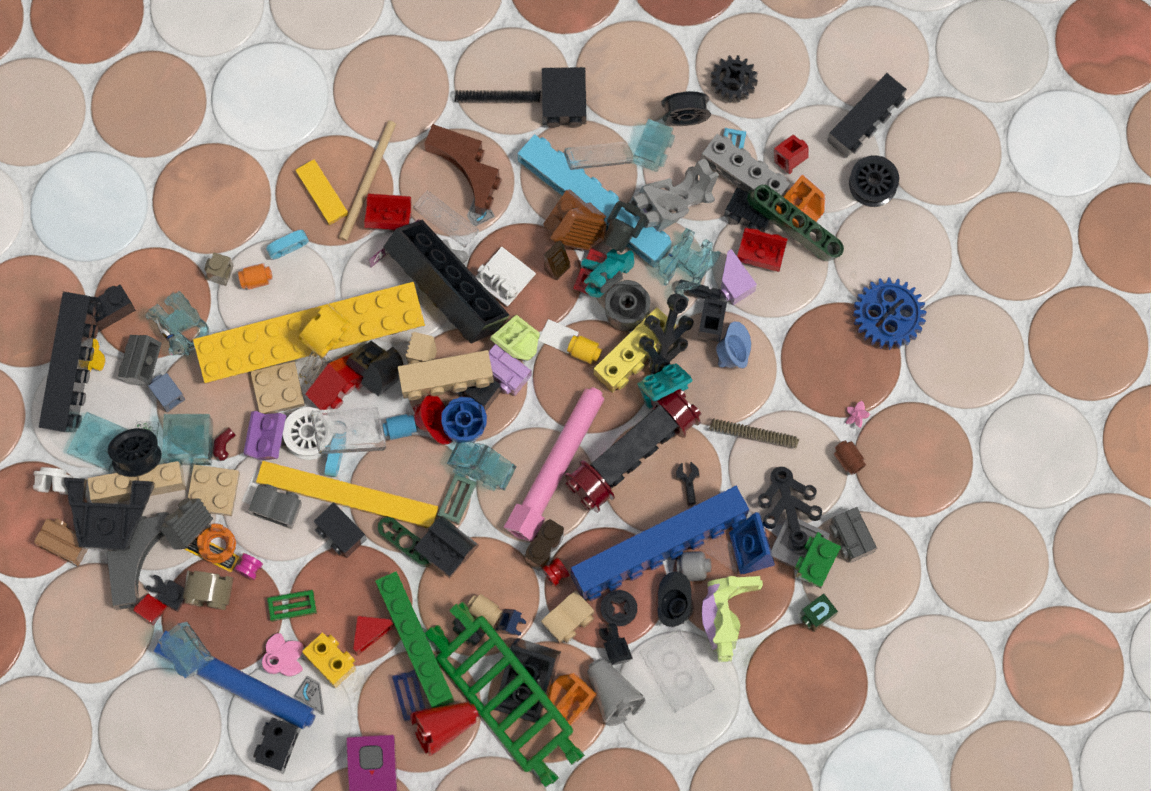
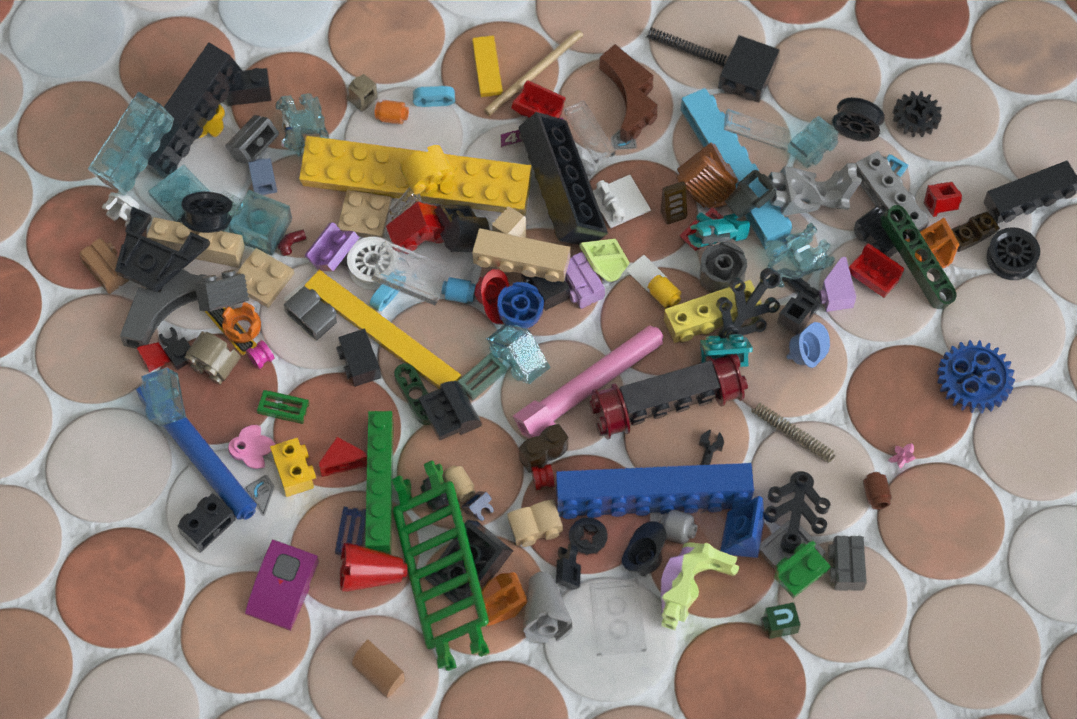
camera: 25 degrees right, 10 degrees down
(39, 422) = (131, 143): none -> clear light blue brick
(831, 171) = (975, 230): none -> dark brown slope

